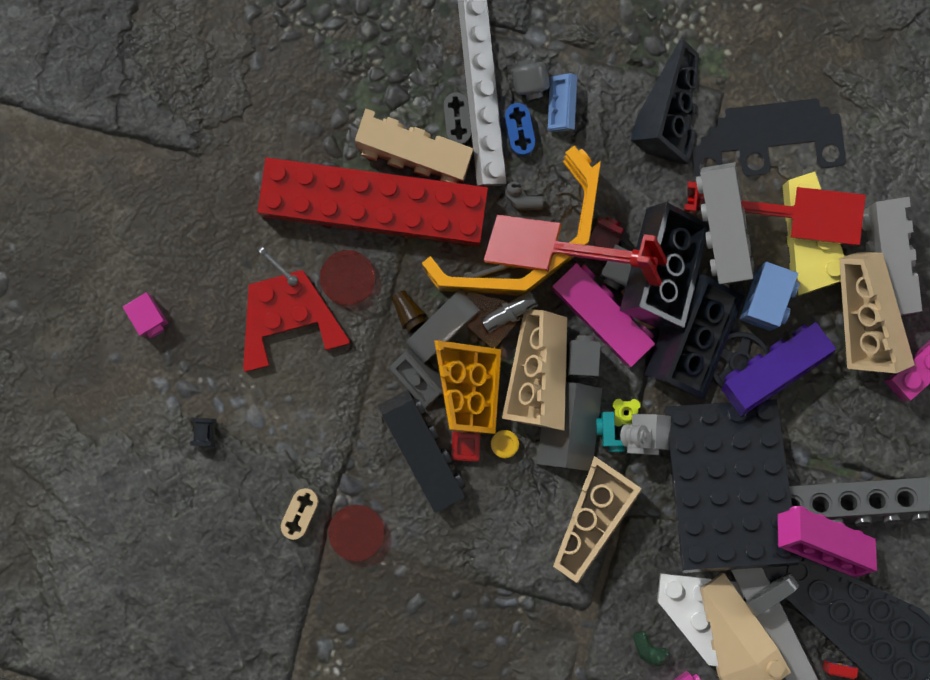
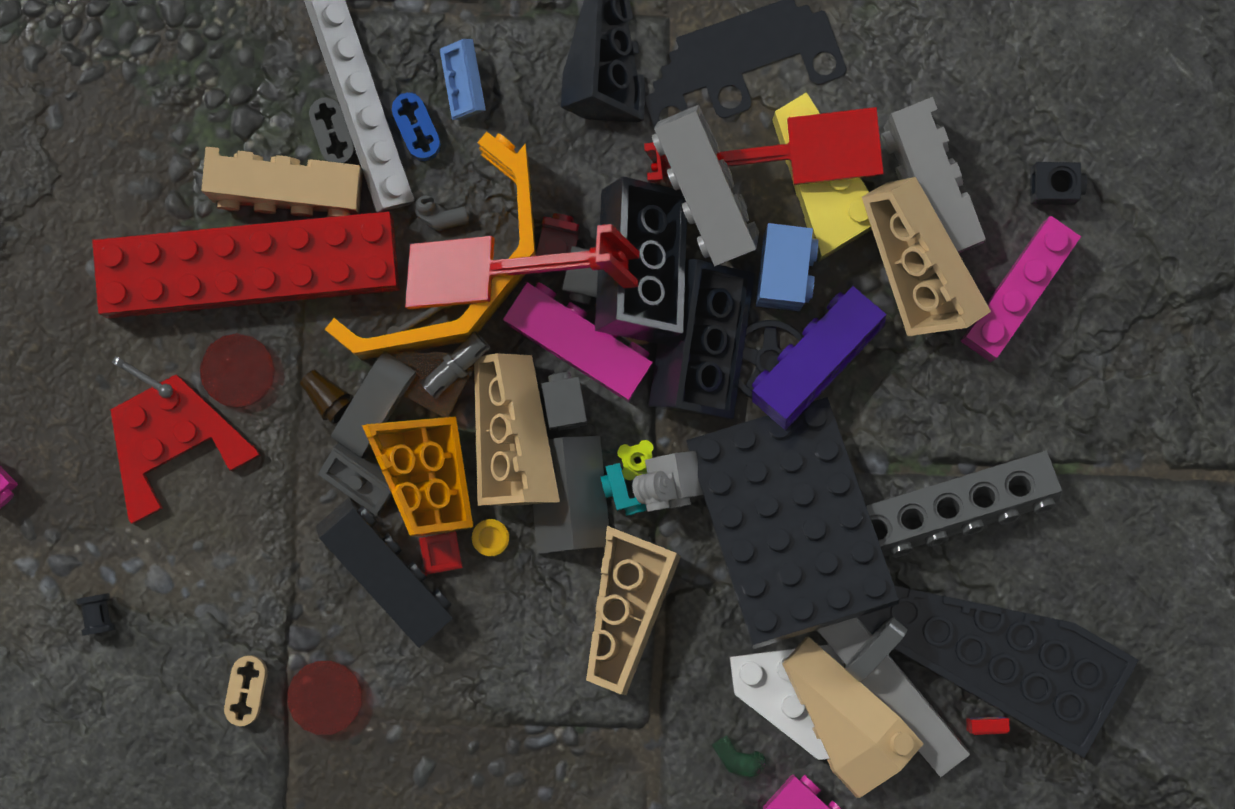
camera: 15 degrees left, 0 degrees up
(530, 78) = (414, 57): dark grey head -> none
(826, 542) = (929, 565): dark pink brick -> none

